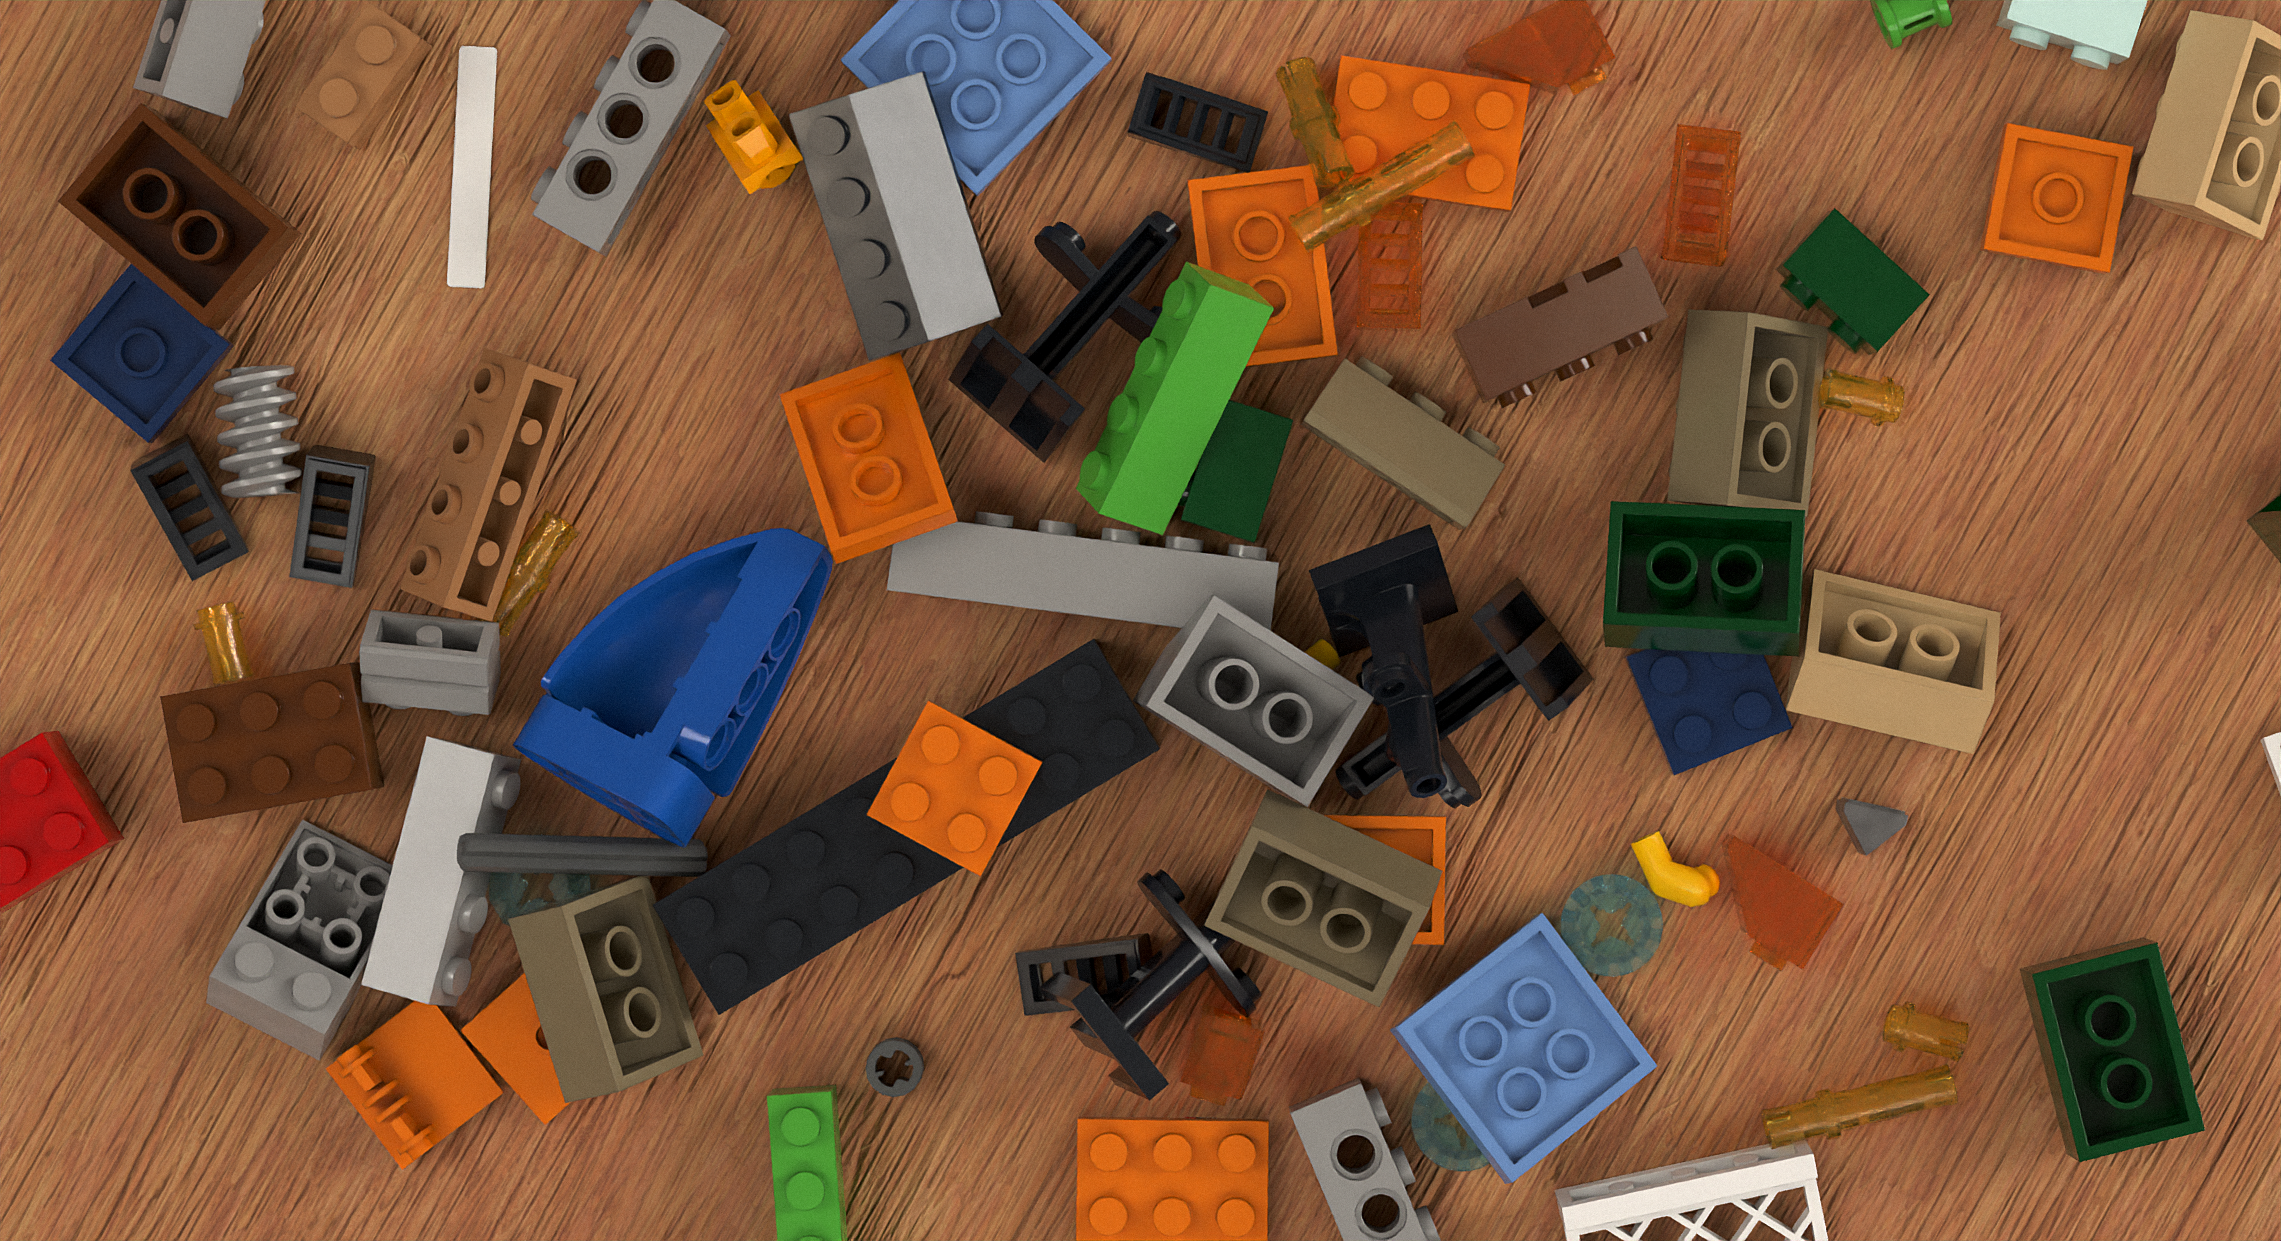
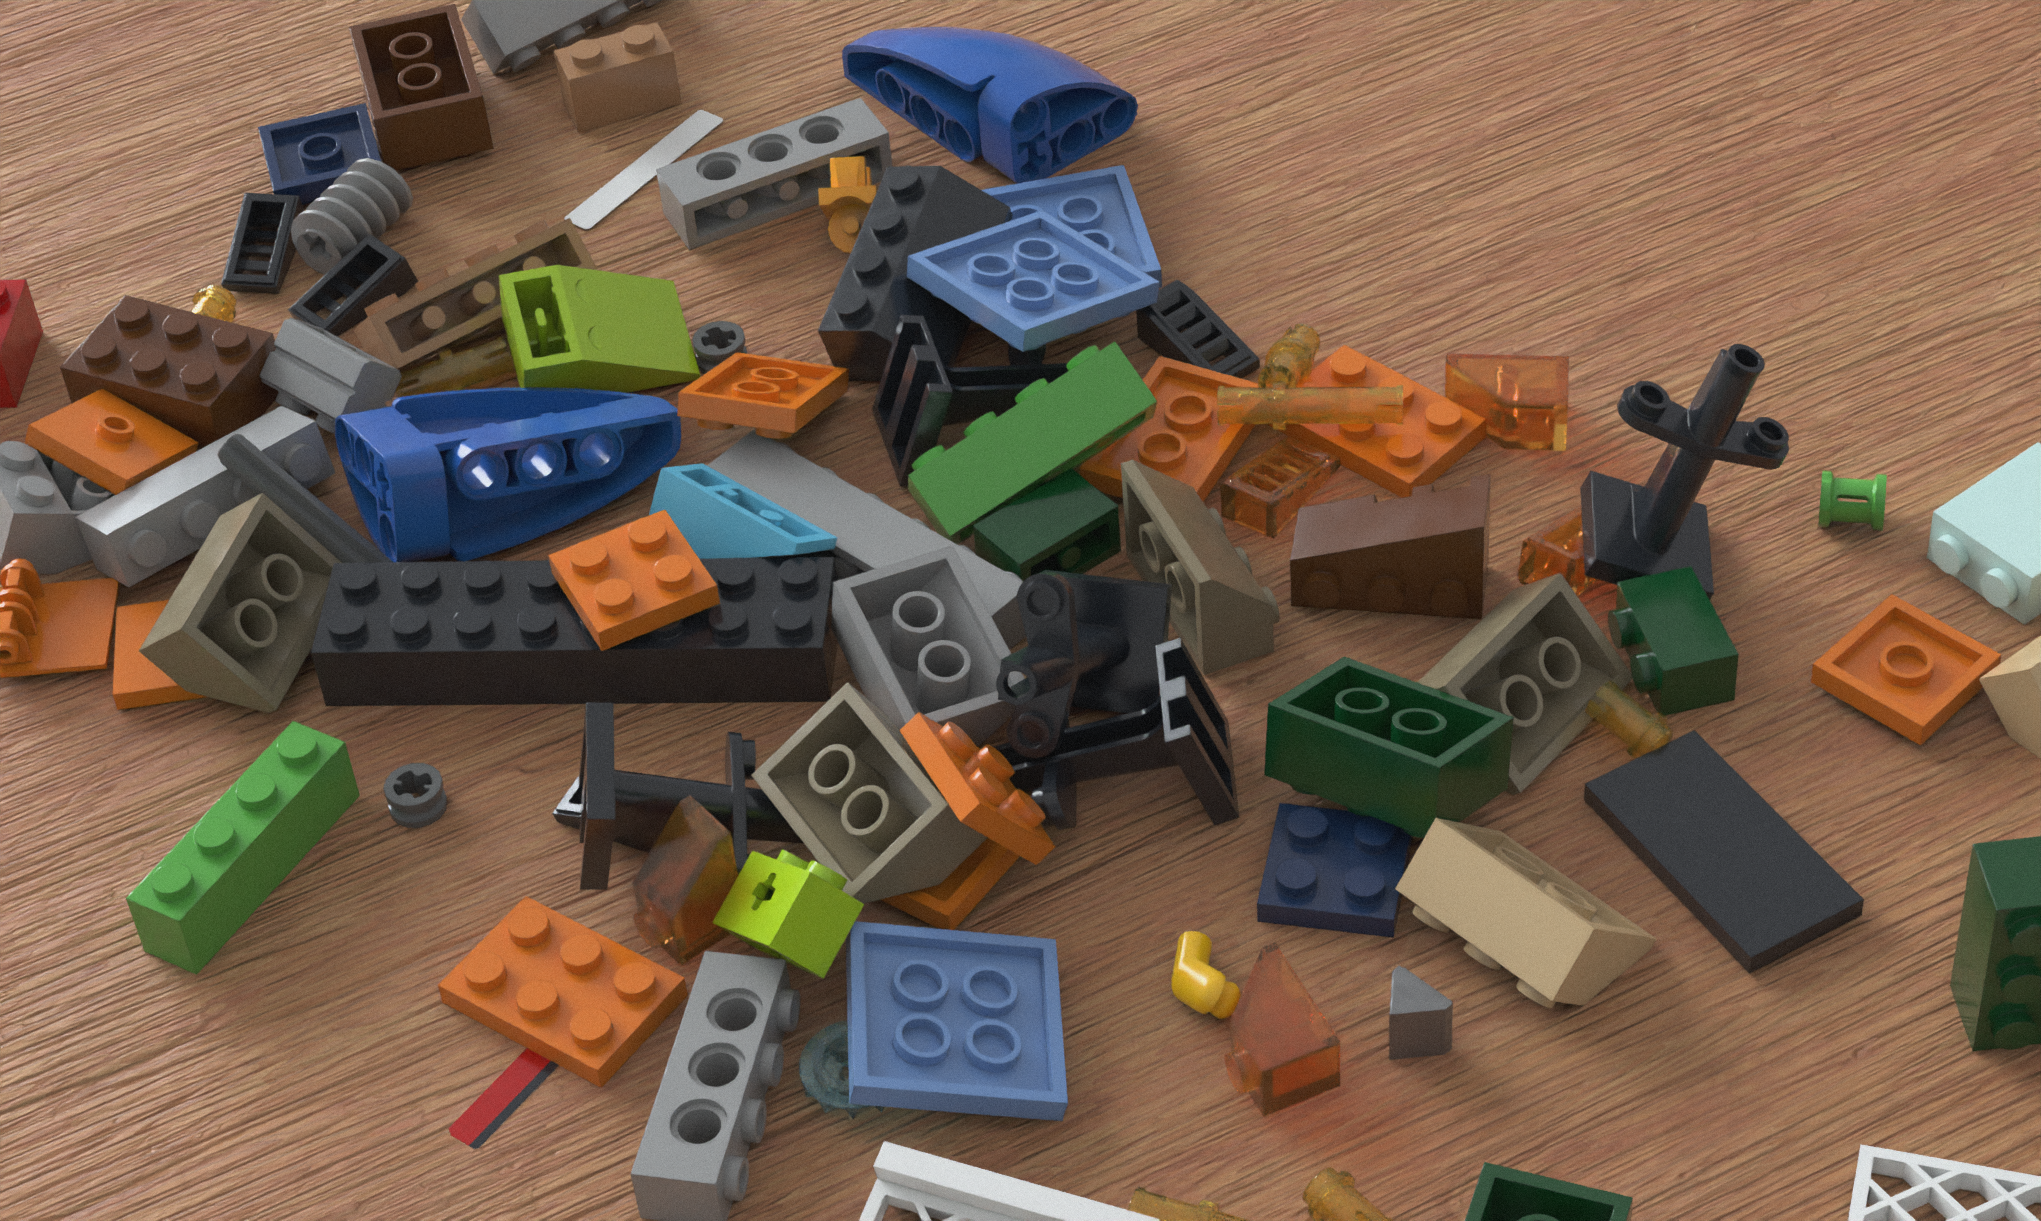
camera: 40 degrees right, 45 degrees down
(305, 871) = (108, 441): none -> orange plate
(649, 468) = (595, 330): none -> lime slope
(748, 369) = (717, 343): none -> dark grey bush
(968, 640) = (730, 519): none -> medium azure slope
(1031, 184) = (1032, 280): none -> medium blue plate
(1335, 1044) = (790, 910): none -> lime brick
(1415, 846) = (979, 787): none -> orange plate
(1641, 921) = (1130, 969): clear light blue gear -> none
(1768, 161) = (1658, 525): none -> black piece
(2004, 488) = (1723, 851): none -> black tile

